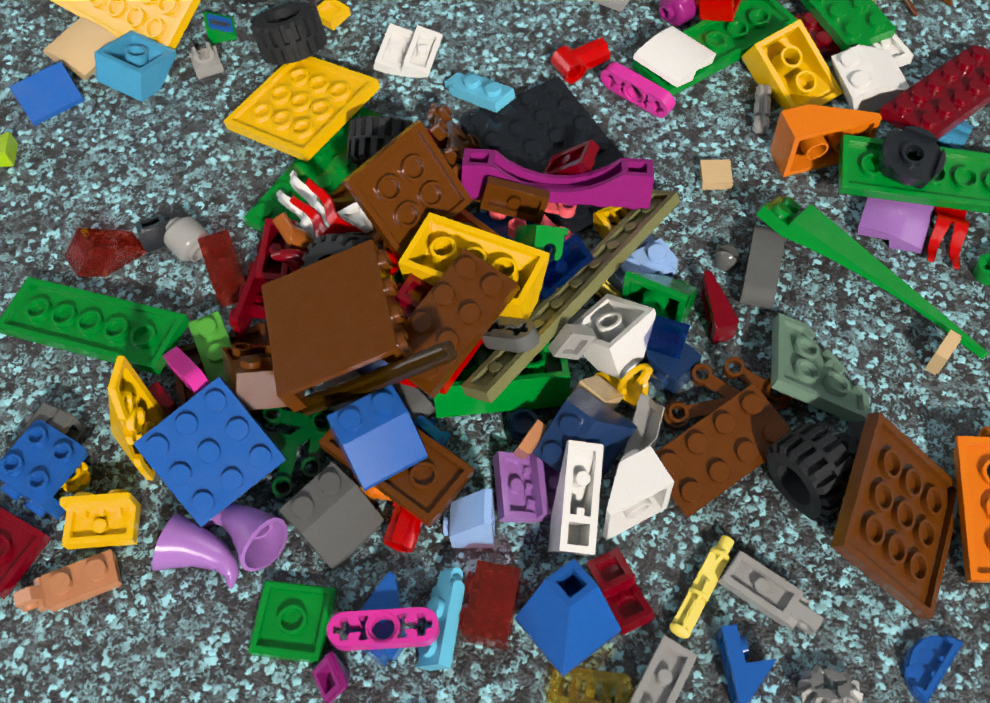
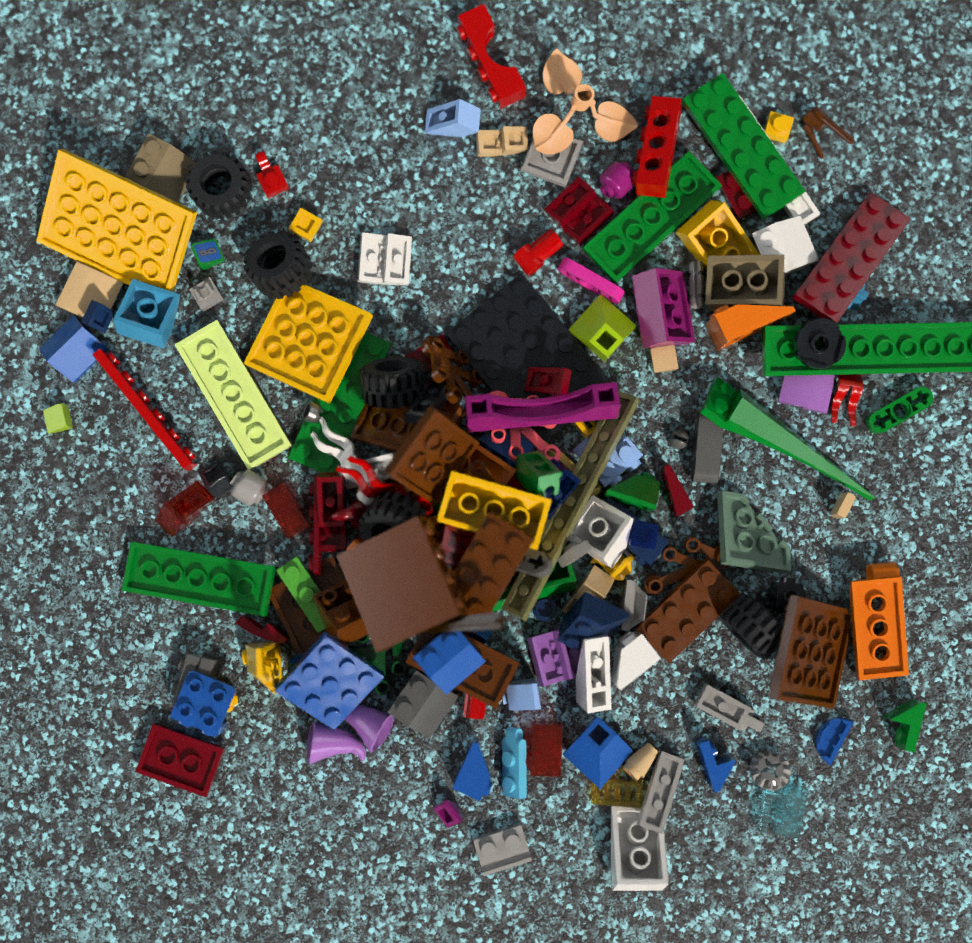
camera: 15 degrees left, 25 degrees up
(71, 584) = (252, 776): nougat hinge -> none
(80, 58) = (98, 316): none -> dark blue plate
(100, 519) = (259, 732): yellow bracket -> none
(105, 159) = (140, 400): none -> red plate
(186, 370) = (293, 621): dark pink beam -> none
(203, 153) = (233, 395): none -> yellowish green plate
(284, 168) = (311, 412): none -> flat silver hinge
(292, 621) = (412, 777): green tile -> none
(293, 236) = (342, 492): dark orange arm -> none
(355, 639) = (459, 781): dark pink beam -> none
(480, 91) = (456, 301): medium azure hinge -> none
(514, 199) = (512, 433): reddish brown plate -> none
(530, 440) = (553, 629): nougat tile -> none
(620, 590) = (629, 722): dark red slope -> none
(629, 30) = (579, 211): none -> dark red slope
(629, 649) = (640, 762): none -> tan cone
(645, 135) = (602, 328): none -> lime slope
(674, 56) = (619, 247): white slope -> none
(701, 588) = (683, 711): light yellow piece -> none
(719, 121) = (663, 308): none -> magenta slope
(821, 85) = (745, 280): none -> dark tan slope

